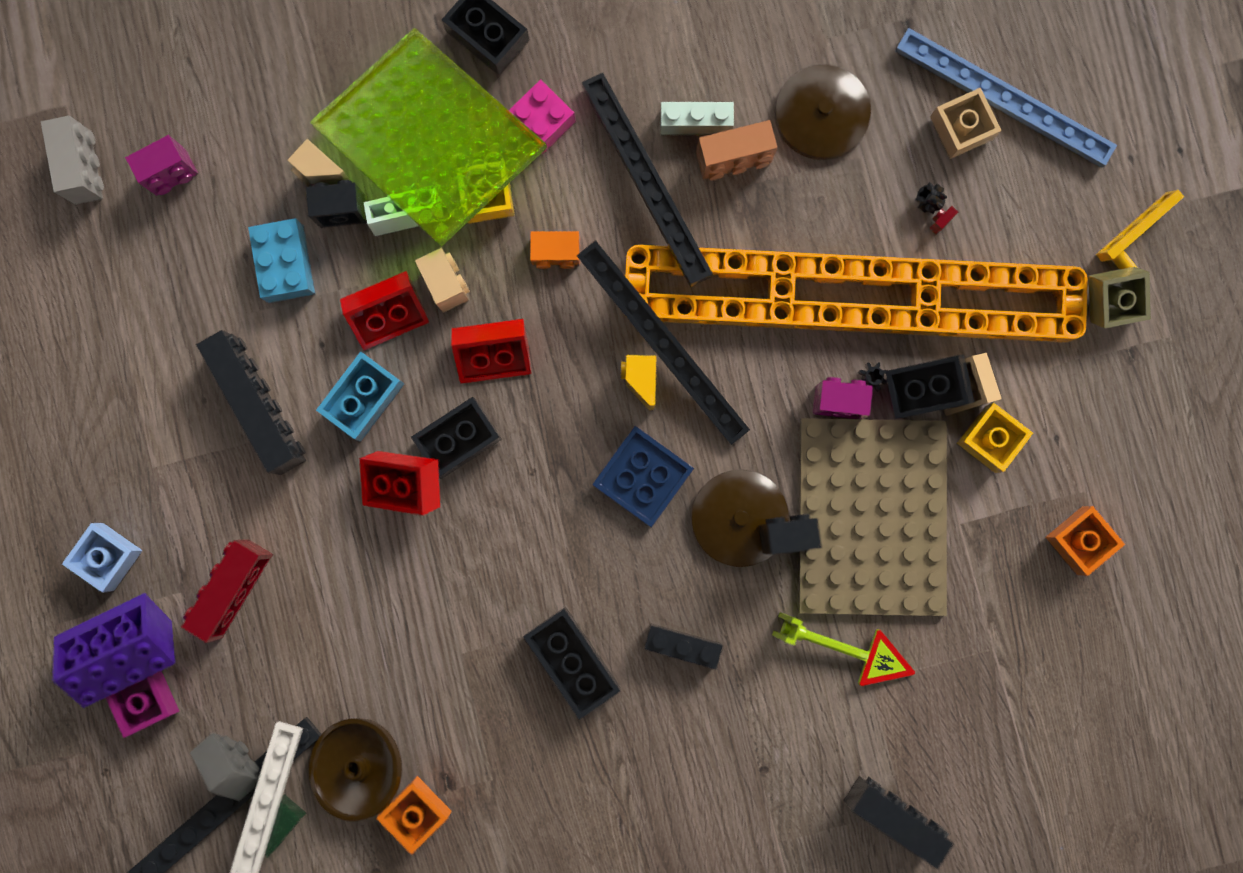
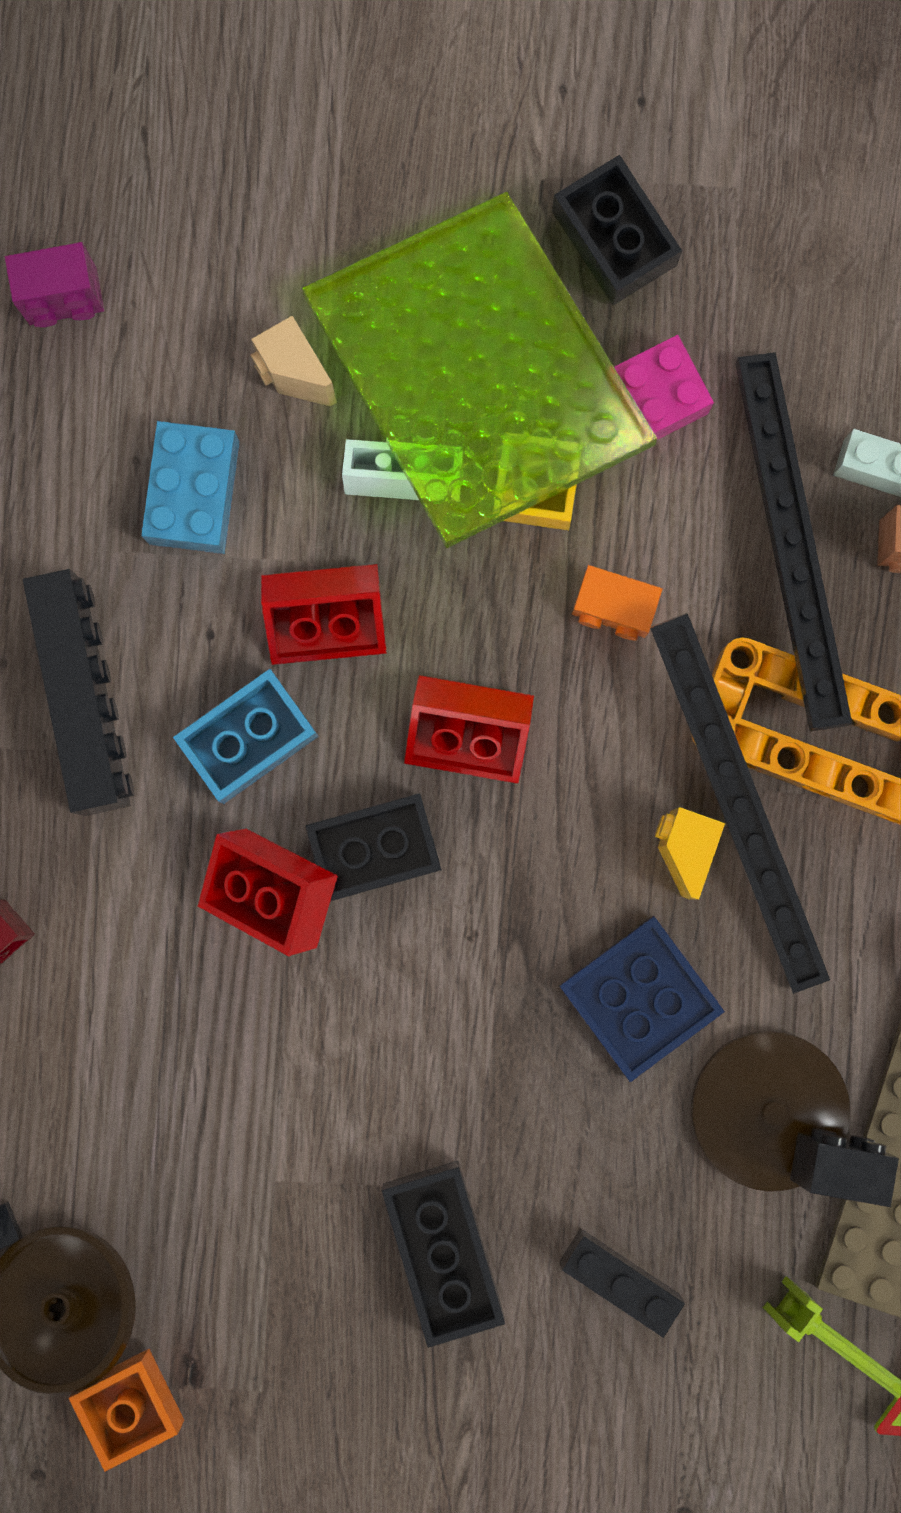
camera: 15 degrees right, 0 degrees up
(336, 204) = (303, 428): black brick -> none
(441, 279) = (429, 596): tan brick -> none

